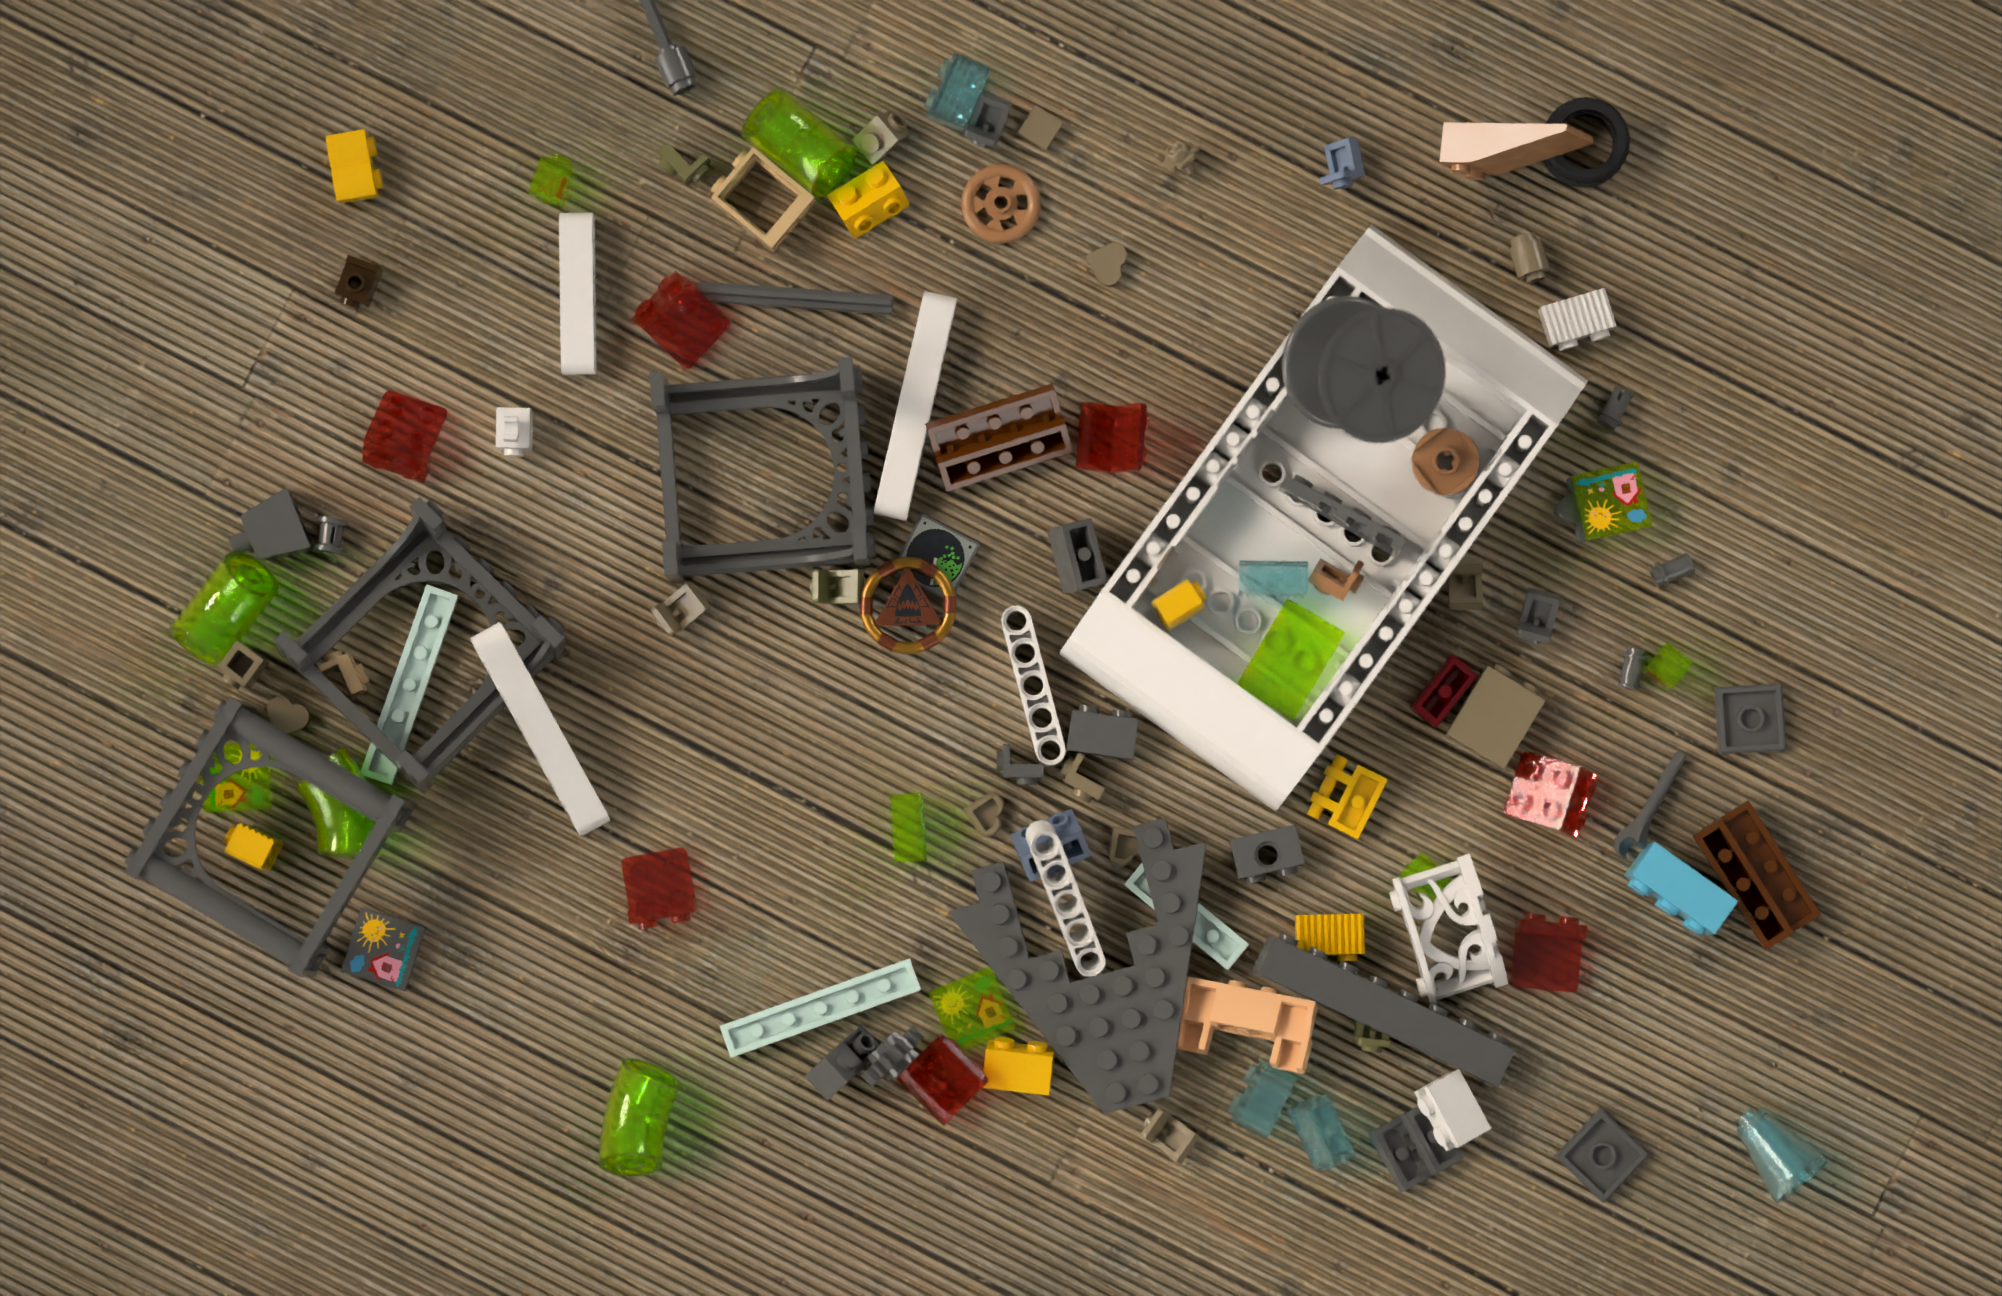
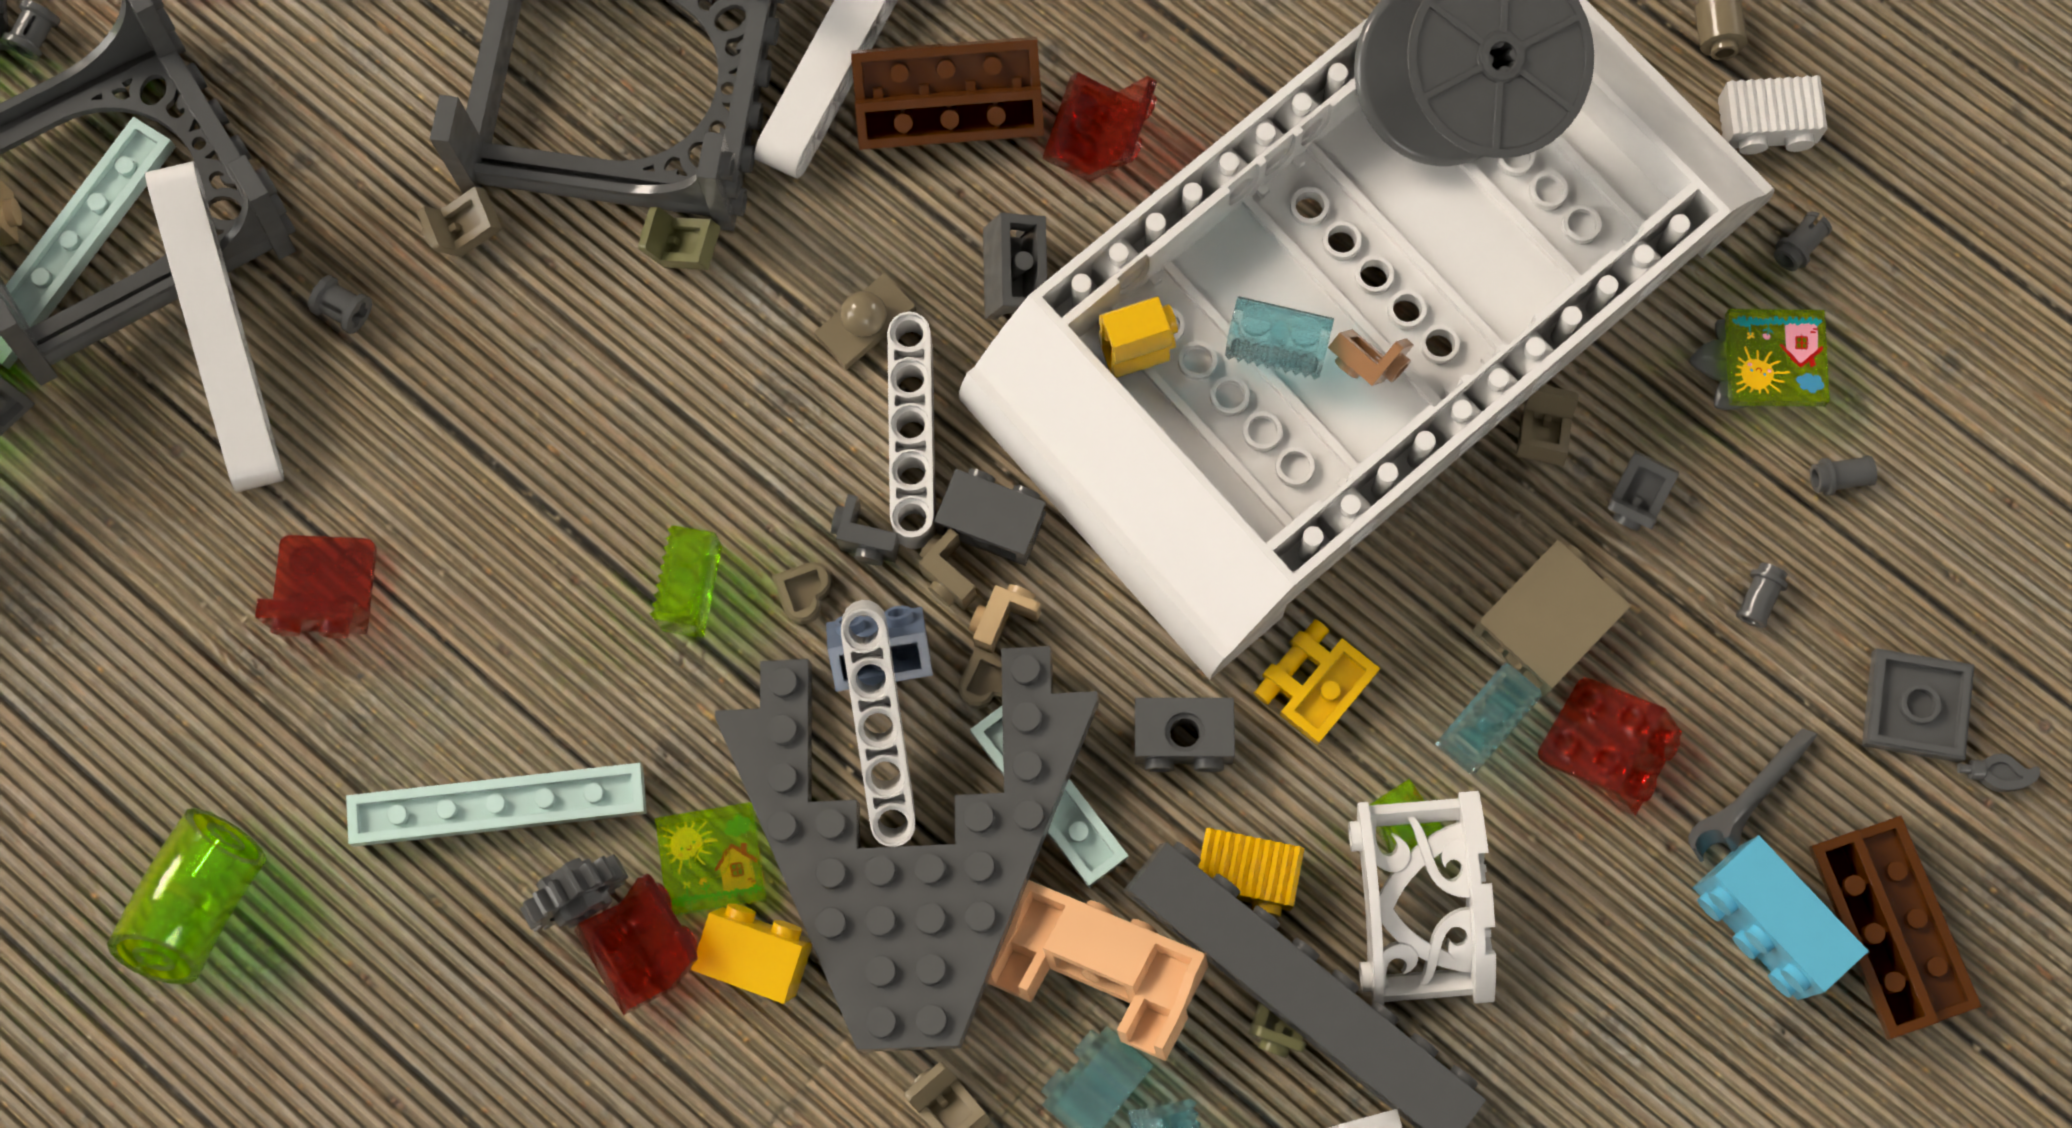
camera: 15 degrees right, 10 degrees down
(612, 686) = (340, 304): none -> dark grey bush
(842, 1063) = (496, 890): dark grey slope -> none
(908, 605) = (766, 283): piece -> none
(941, 547) = (823, 236): tile -> none
(980, 613) = (863, 320): none -> dark tan tile
(1119, 806) = (991, 619): none -> tan bracket
(1290, 659) = (1281, 455): clear neon green tile -> none
(1352, 520) = (1410, 282): dark grey wing -> none
(1443, 691) = (1484, 565): dark red brick -> none
(1447, 442) = (1551, 263): medium nougat plate -> none
(1466, 798) = (1489, 718): none -> clear light blue brick
(1547, 953) = (1561, 969): clear red bracket -> none
(1667, 666) = (1814, 601): clear neon green brick -> none
(1811, 752) = (2000, 773): none -> dark grey piece

